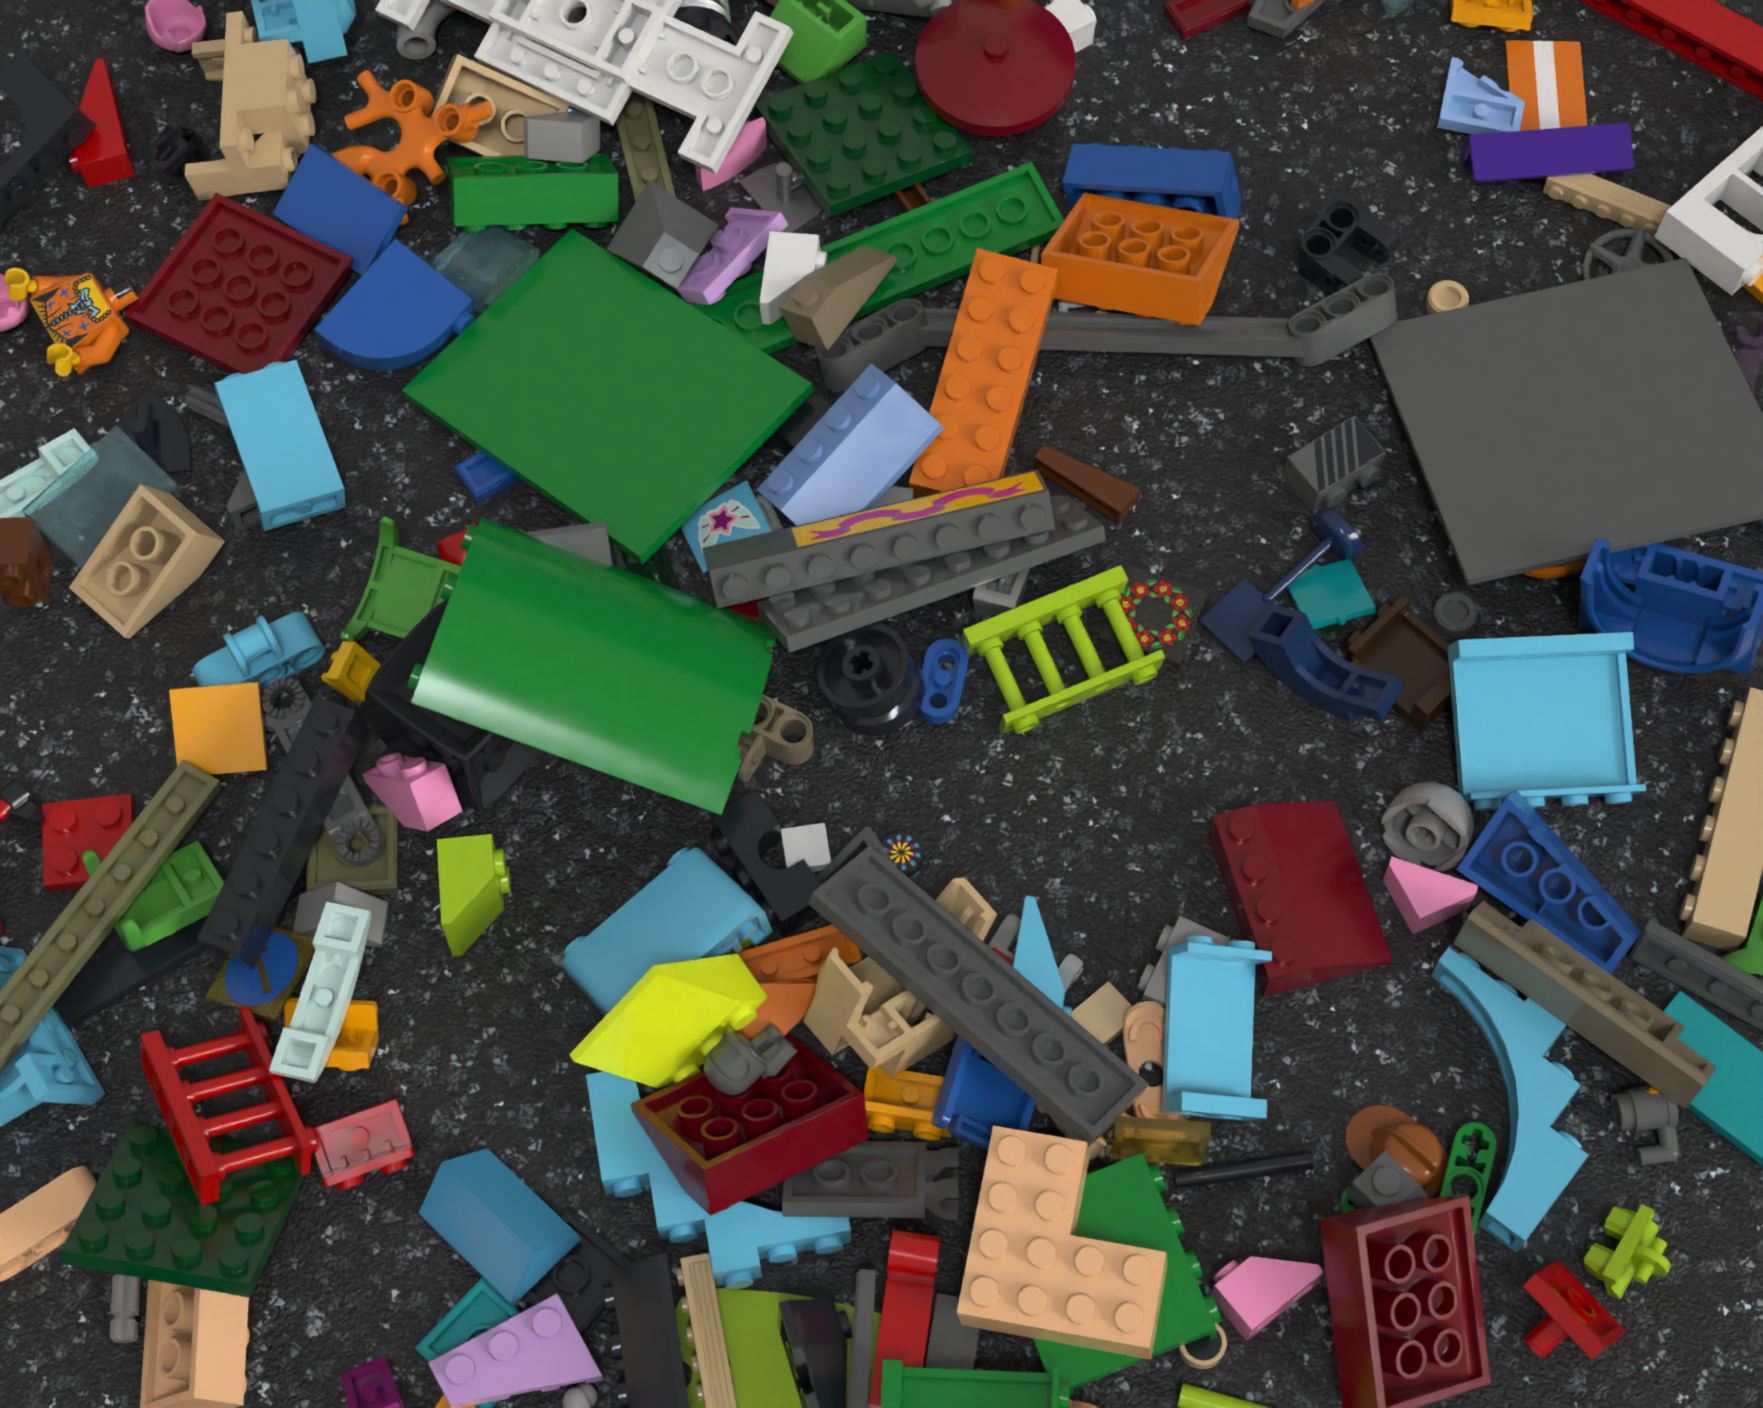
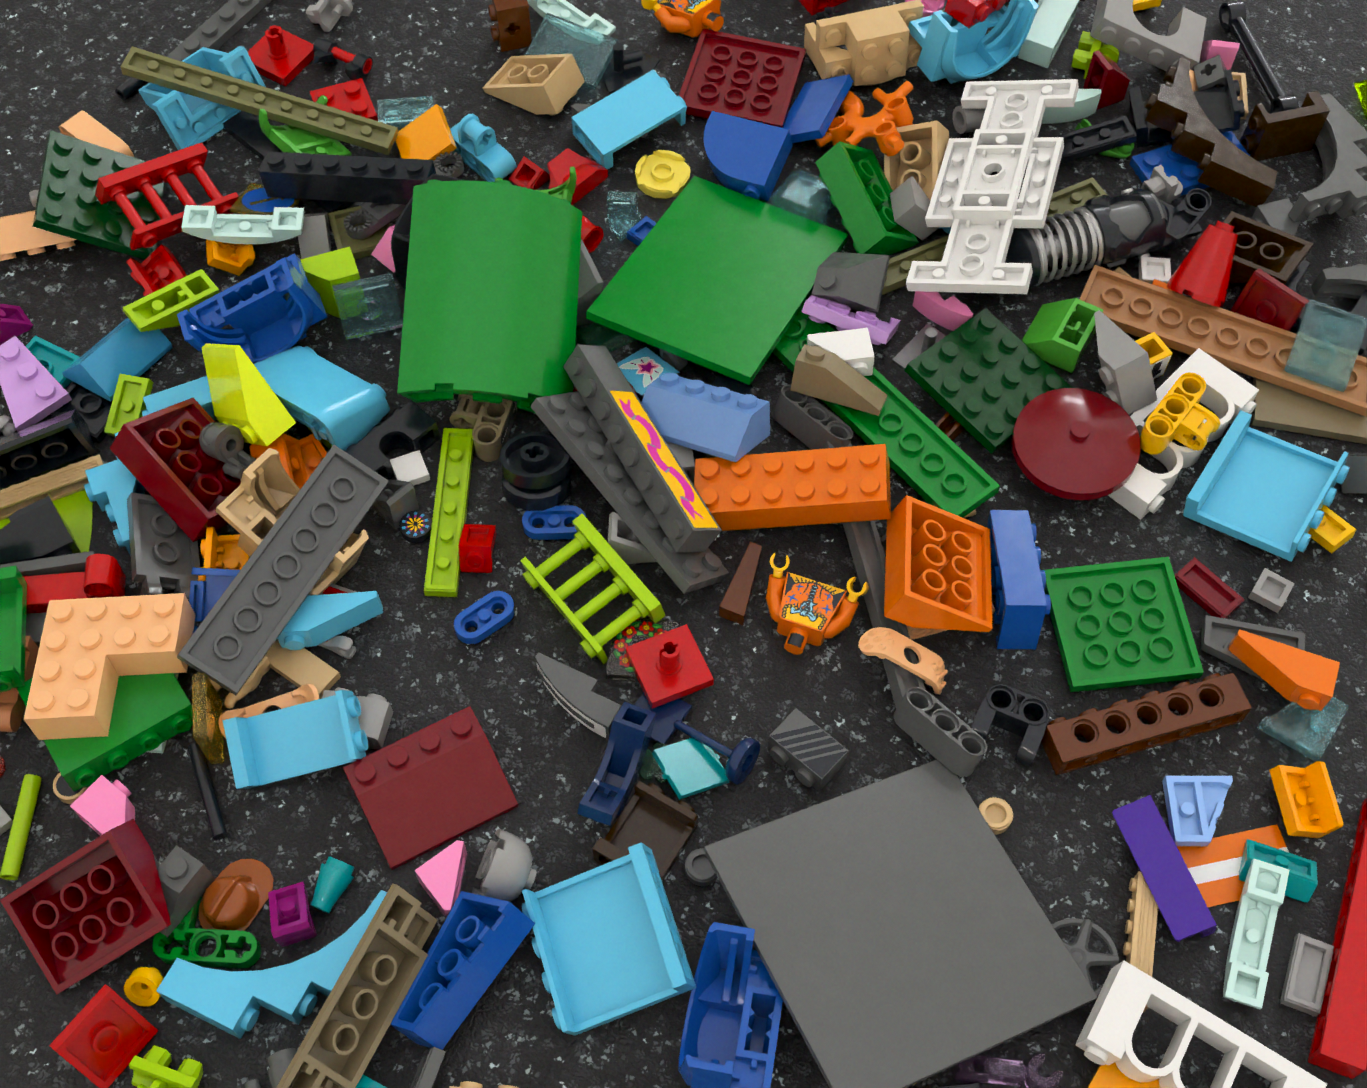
camera: 75 degrees right, 5 degrees down
(138, 751) = (403, 110): none -> clear light blue plate
(324, 606) = (529, 175): none -> red slope
(346, 541) = (588, 173): none -> red slope
(379, 432) = (662, 174): none -> light yellow tile
(442, 1115) = (161, 307): none -> lime slope
(445, 495) = (622, 212): none -> clear light blue tile
(512, 991) = (265, 310): none -> blue piece
(526, 847) = (368, 306): none -> clear light blue tile
(602, 1210) = (127, 401): none -> lime plate
(885, 809) = (449, 513): none -> lime tile
(957, 779) = (477, 548): none -> red bracket
(1067, 793) = (482, 617): none -> blue plate
(1146, 413) = (807, 608): none -> torso
(1191, 587) = (669, 666): none -> red tile
(1208, 699) = (577, 695): none -> dark grey slope
(1231, 336) = (891, 645): none -> light nougat piece
(1239, 98) = (1121, 624): none -> green plate
(1368, 91) = (1068, 754): none -> reddish brown brick
(1405, 1028) = (331, 883): none -> teal cone
(1444, 1075) = (290, 915): none -> magenta slope
(1504, 1264) = (142, 986): none -> yellow tile
(1562, 55) = (1302, 874): none -> teal slope
(1630, 103) = (1253, 933): none -> light aqua slope
(1679, 70) = (1307, 975): none -> light grey tile

